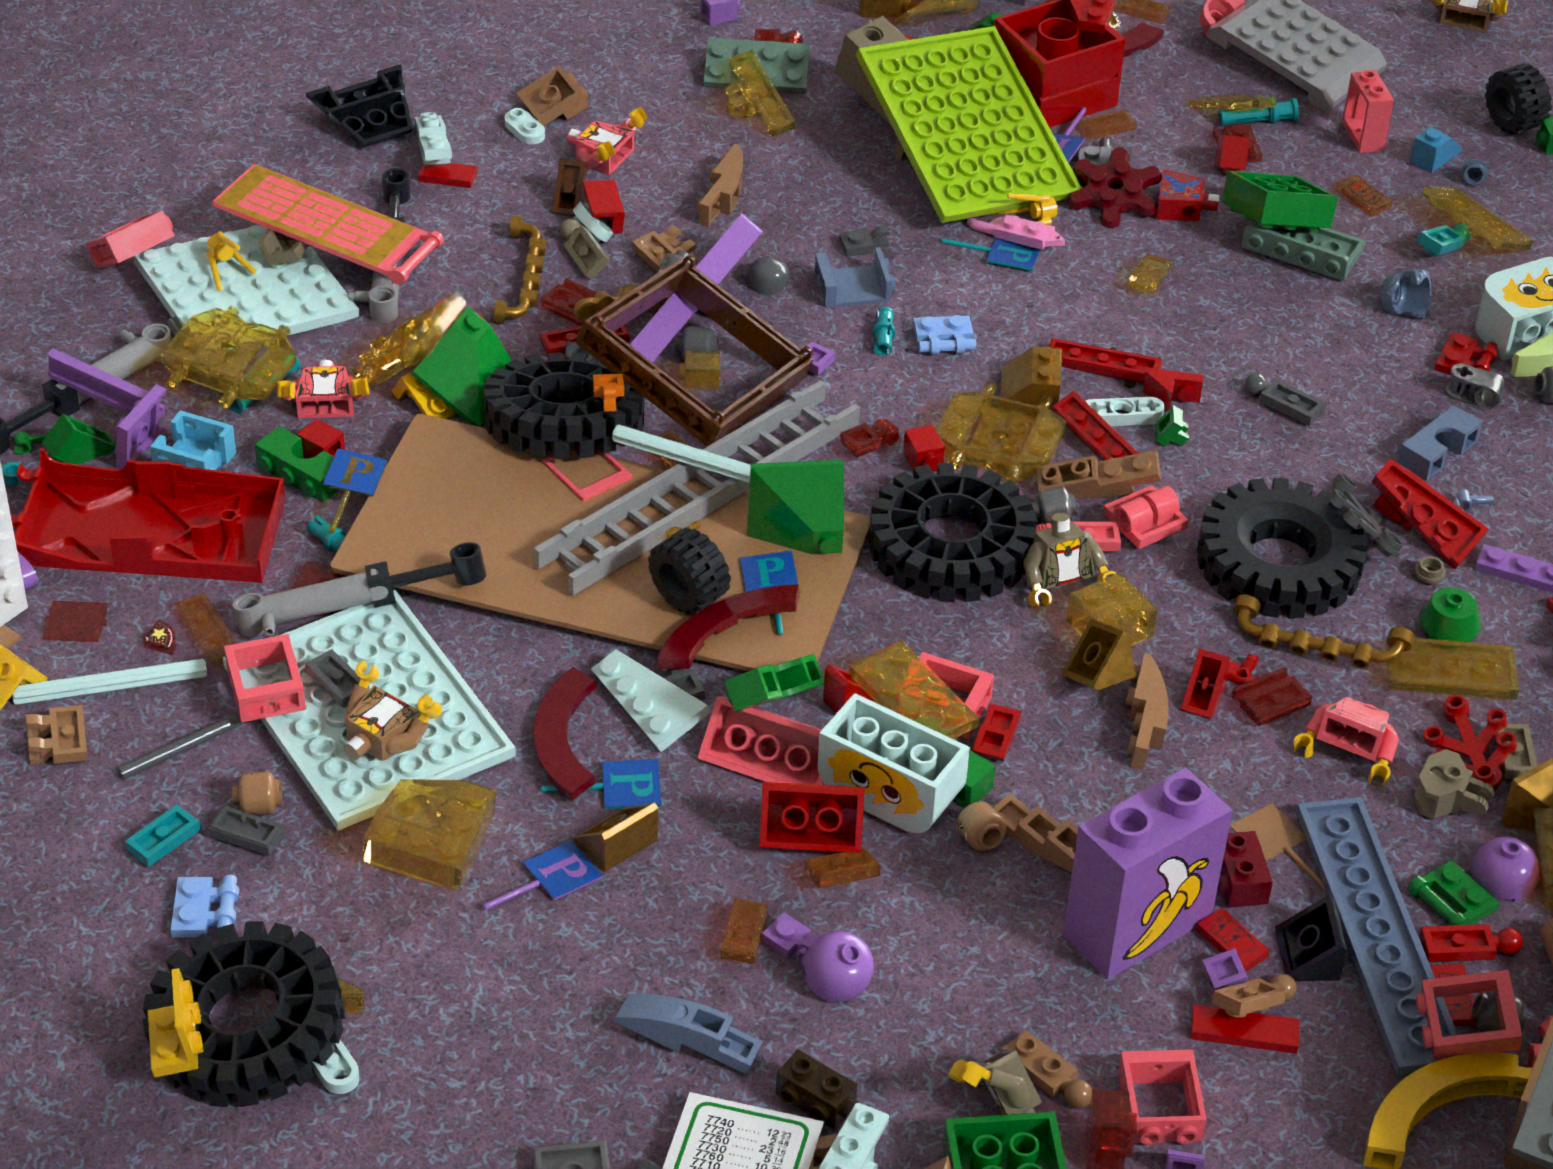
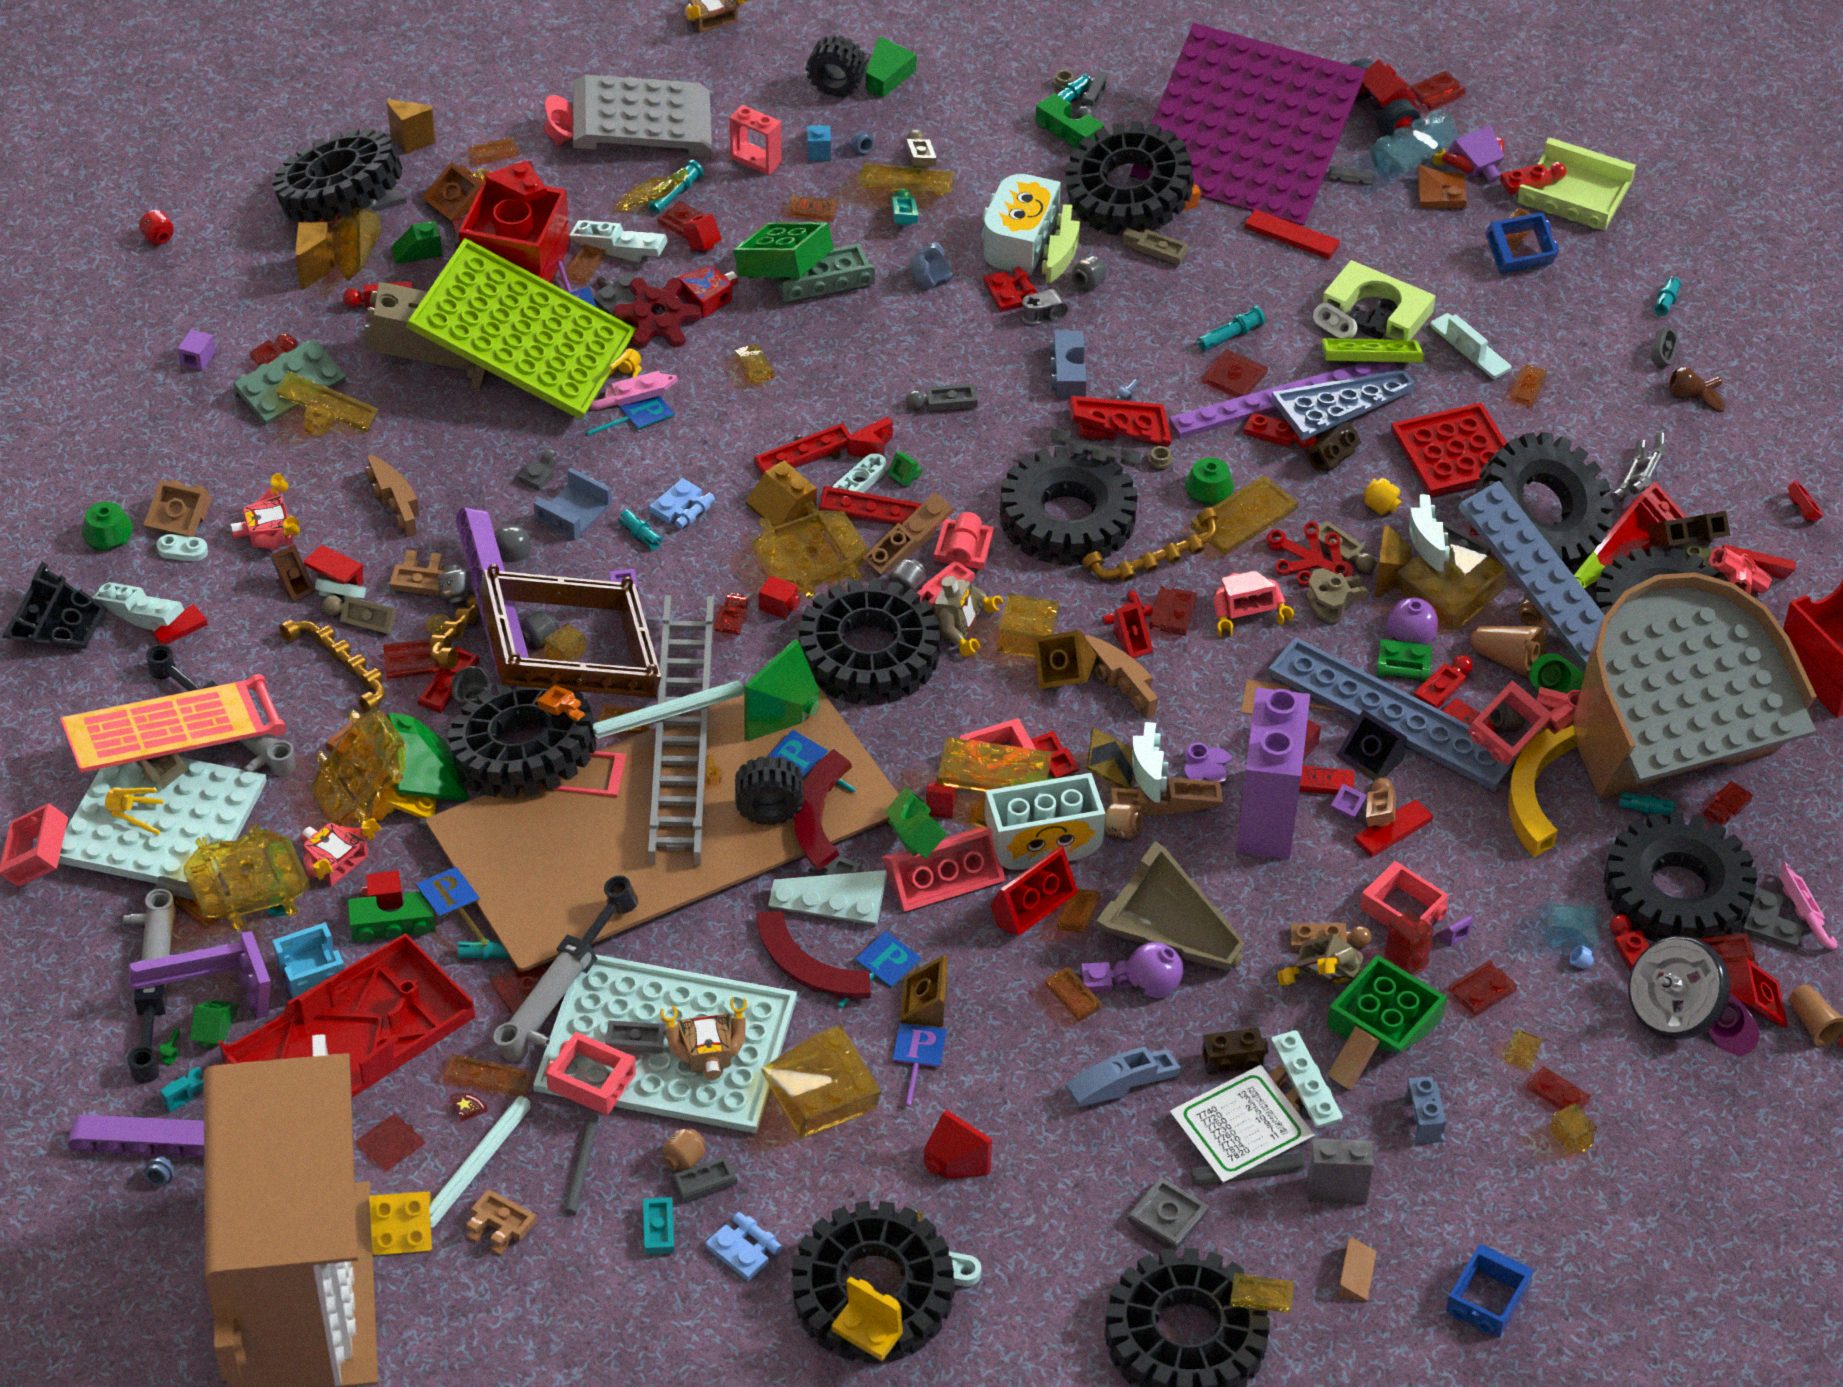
camera: 45 degrees left, 5 degrees up
(456, 968) = (957, 1149): none -> red slope
(489, 77) = (106, 526): none -> green cone
(905, 929) = (1172, 910): none -> dark tan cone
(1040, 770) = (1110, 759): none -> clear yellow piece
(1065, 788) = (1148, 763): none -> light aqua slope
(1153, 120) = (616, 242): none -> light aqua slope
(1520, 206) = (920, 150): none -> dark tan plate

